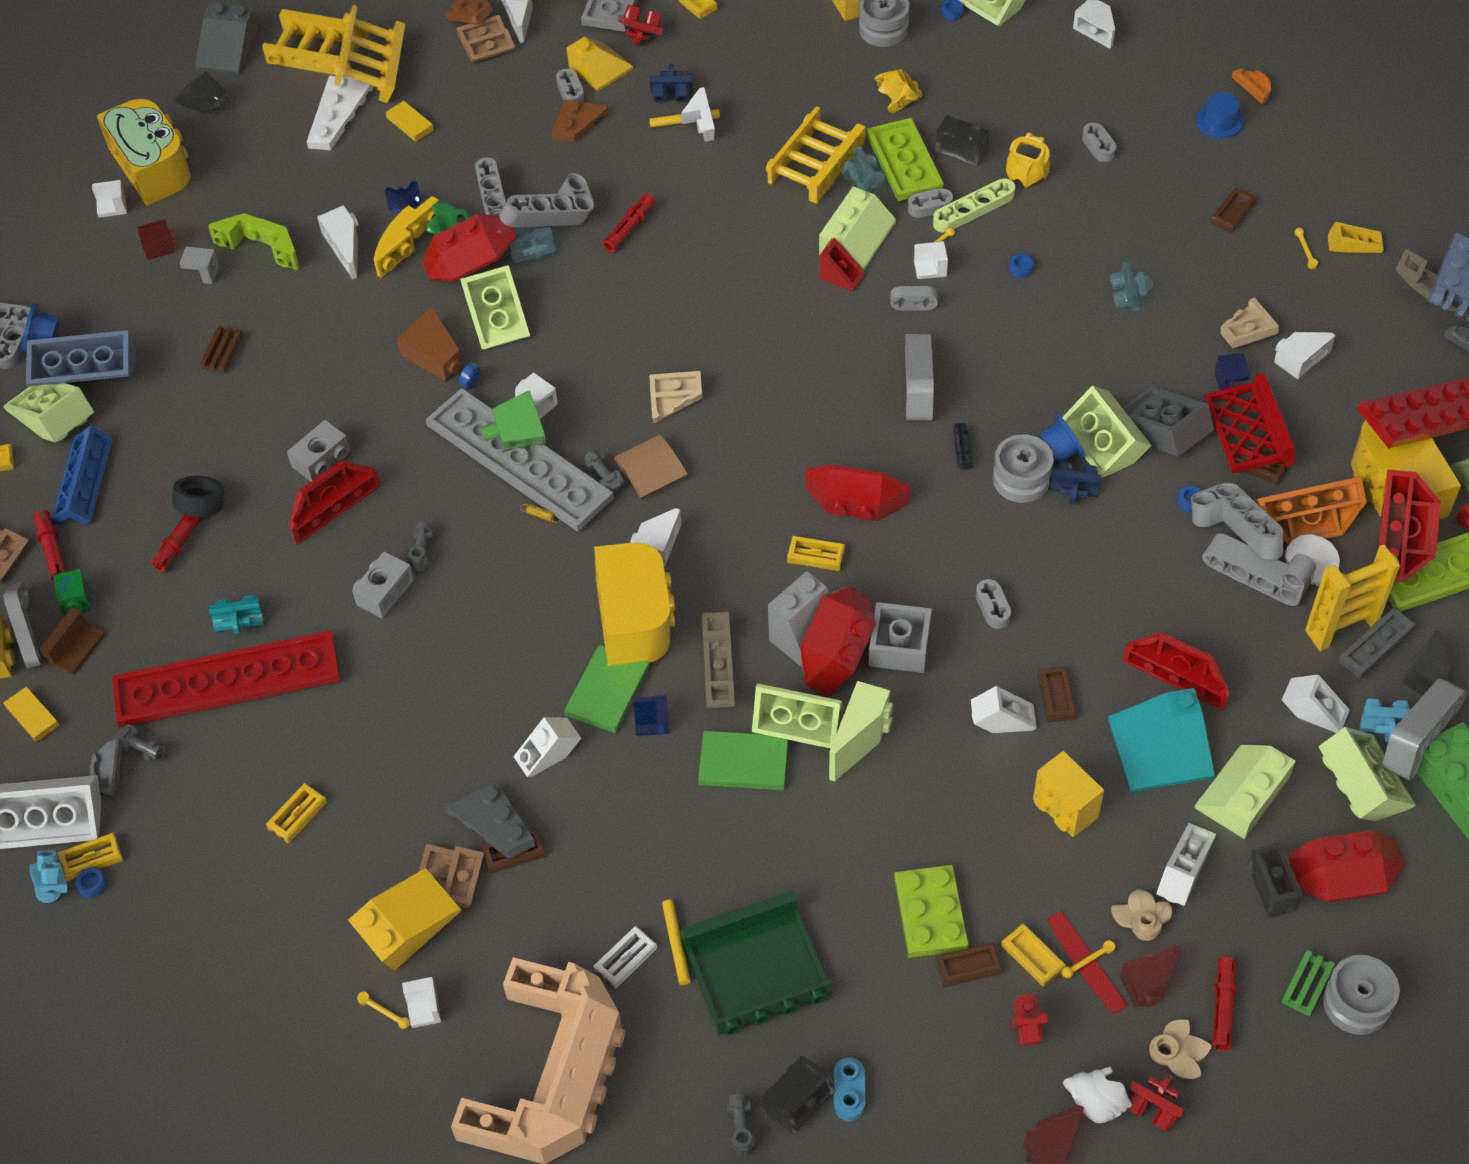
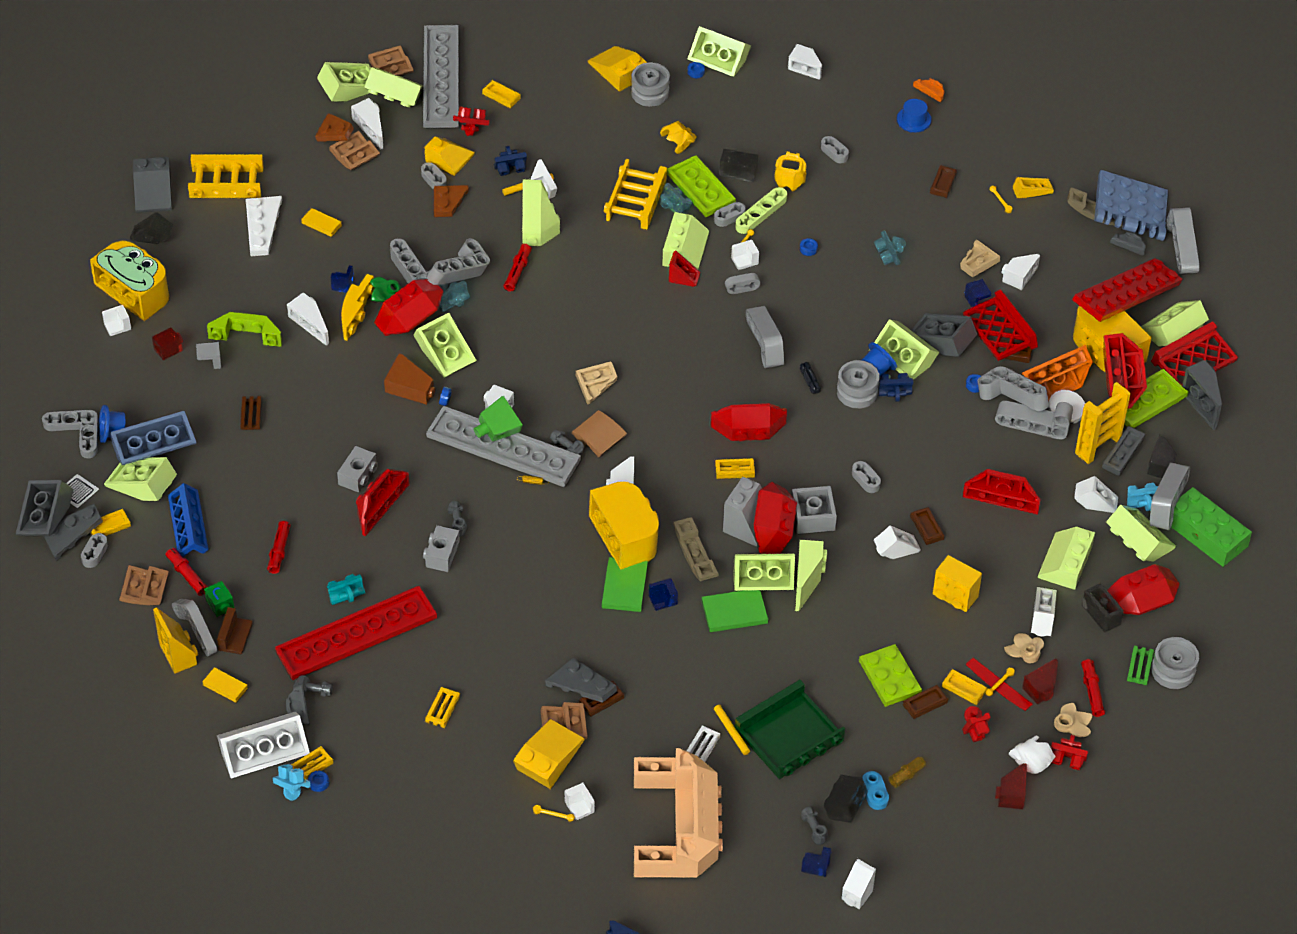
camera: 20 degrees left, 5 degrees down
(198, 496) = (283, 515): black tyre -> none
(391, 52) = (286, 171): yellow fence -> none
(547, 745) = (599, 628): white slope -> none
(671, 160) = (539, 216): none -> yellowish green wedge
(905, 1071) = (907, 772): none -> clear yellow axle
(1162, 741) = (1005, 540): teal slope -> none

